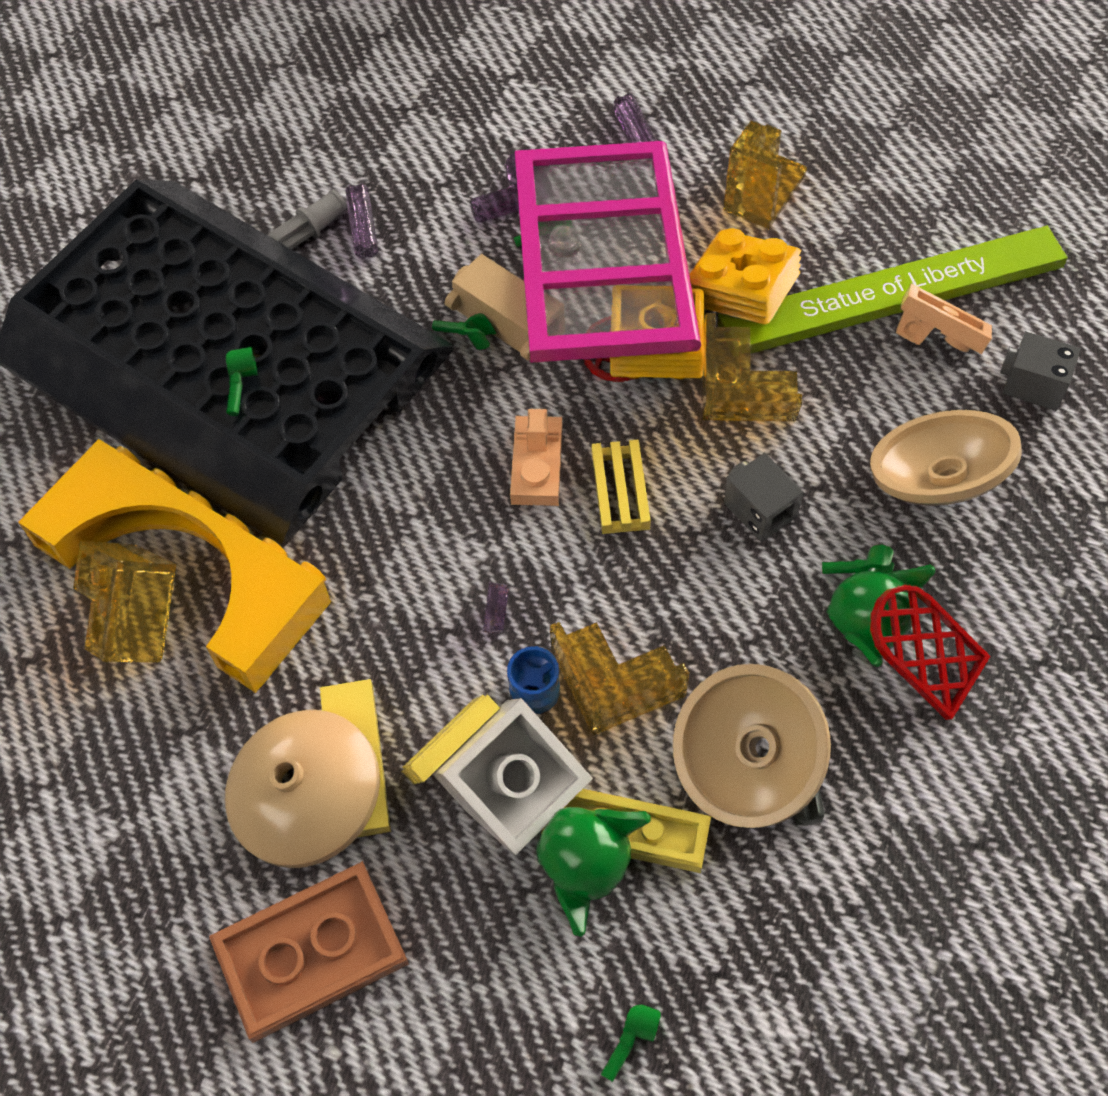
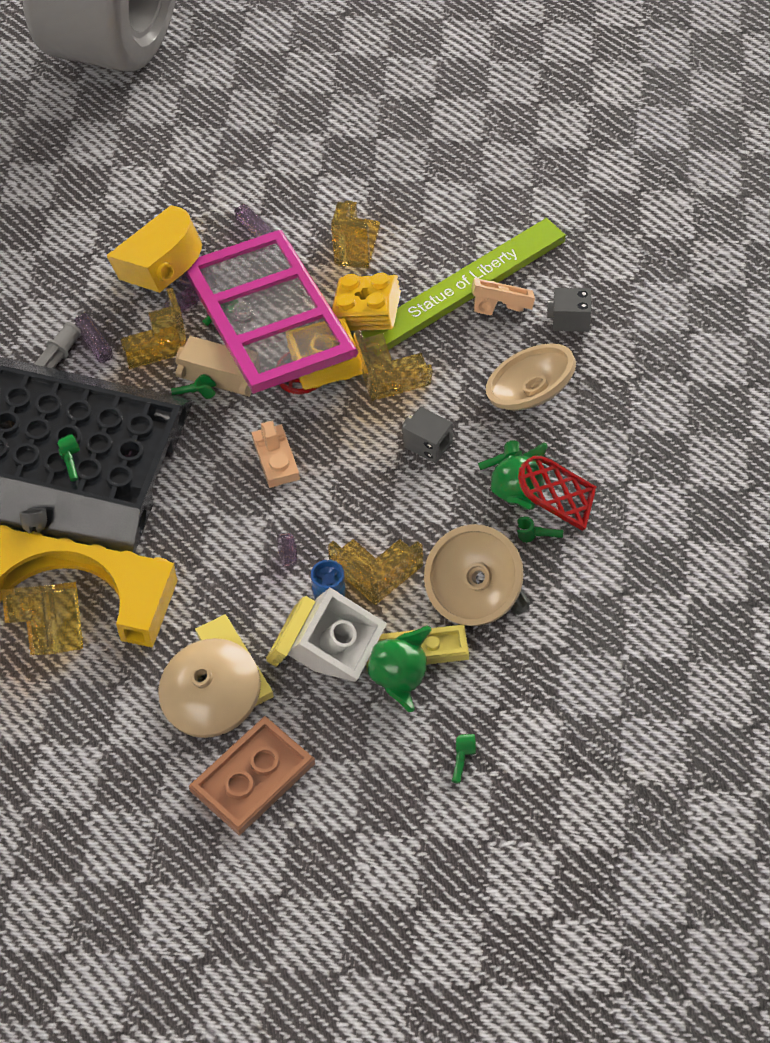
camera: 20 degrees left, 5 degrees down
(161, 453) = (33, 518): none -> dark grey hinge
(449, 244) = (161, 341): none -> clear yellow panel
(489, 126) = (158, 251): none -> yellow brick
(616, 454) = (326, 437): light yellow tile -> none
(870, 698) = (533, 531): none -> green hand

